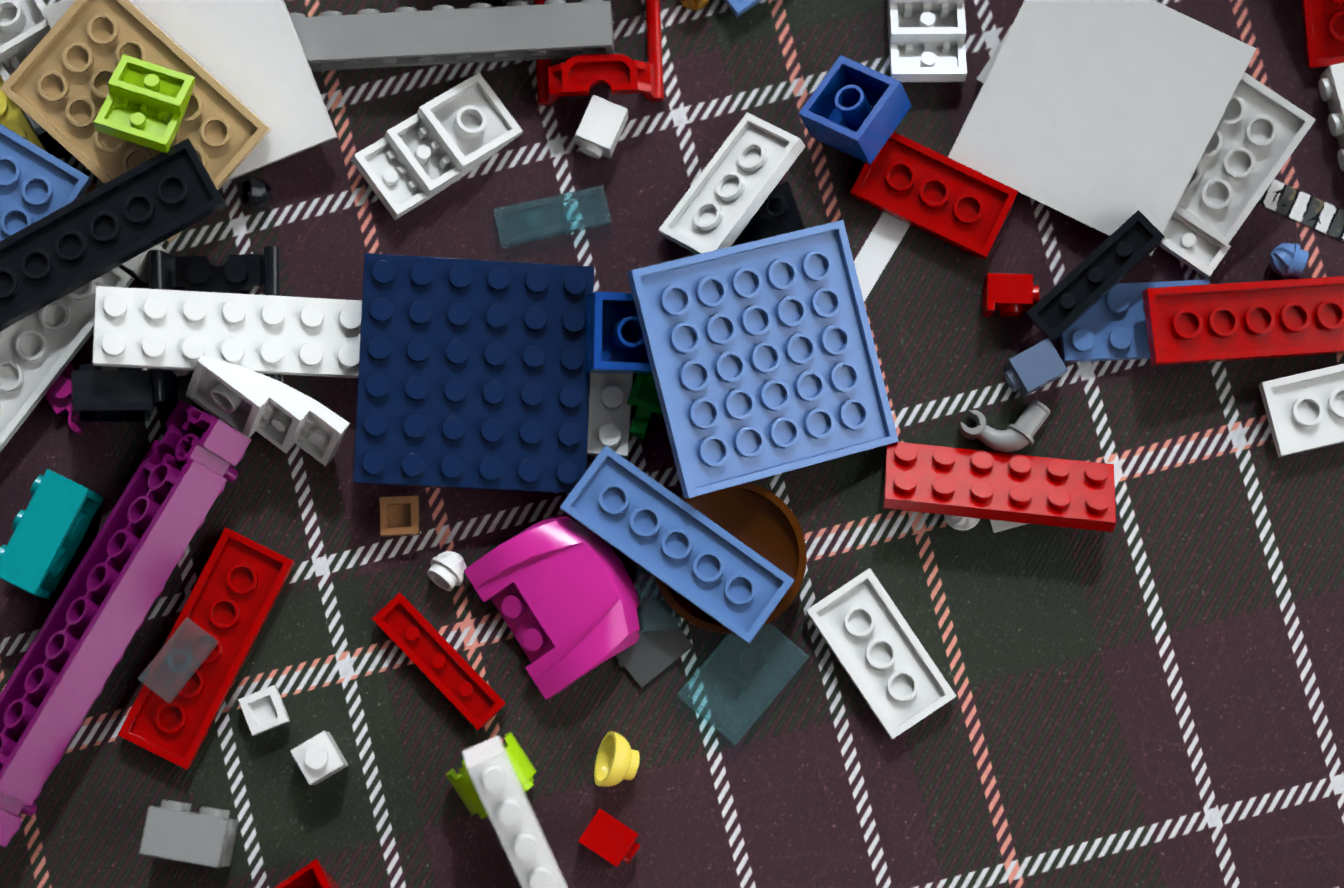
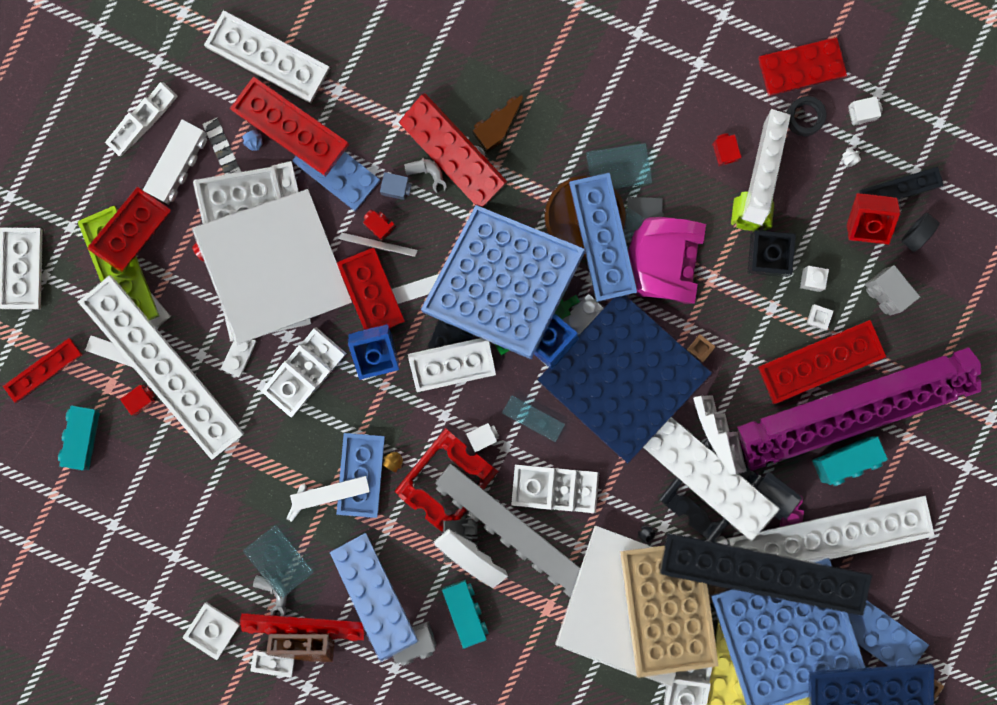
camera: 140 degrees left, 5 degrees up
(145, 103) = (665, 604): lime slope -> none
(178, 660) = (839, 364): clear light blue plate -> none
(412, 738) = (771, 253): none -> black brick
(439, 661) = (734, 276): red plate -> none
(447, 570) = (700, 310): white plate -> none
(615, 761) = (698, 177): light yellow piece -> none
(880, 653) = (557, 128): white plate -> none
(967, 576) = (494, 130): none -> reddish brown slope
(990, 264) = (377, 244): none -> white sticker
(1095, 276) = (338, 199): black plate -> none

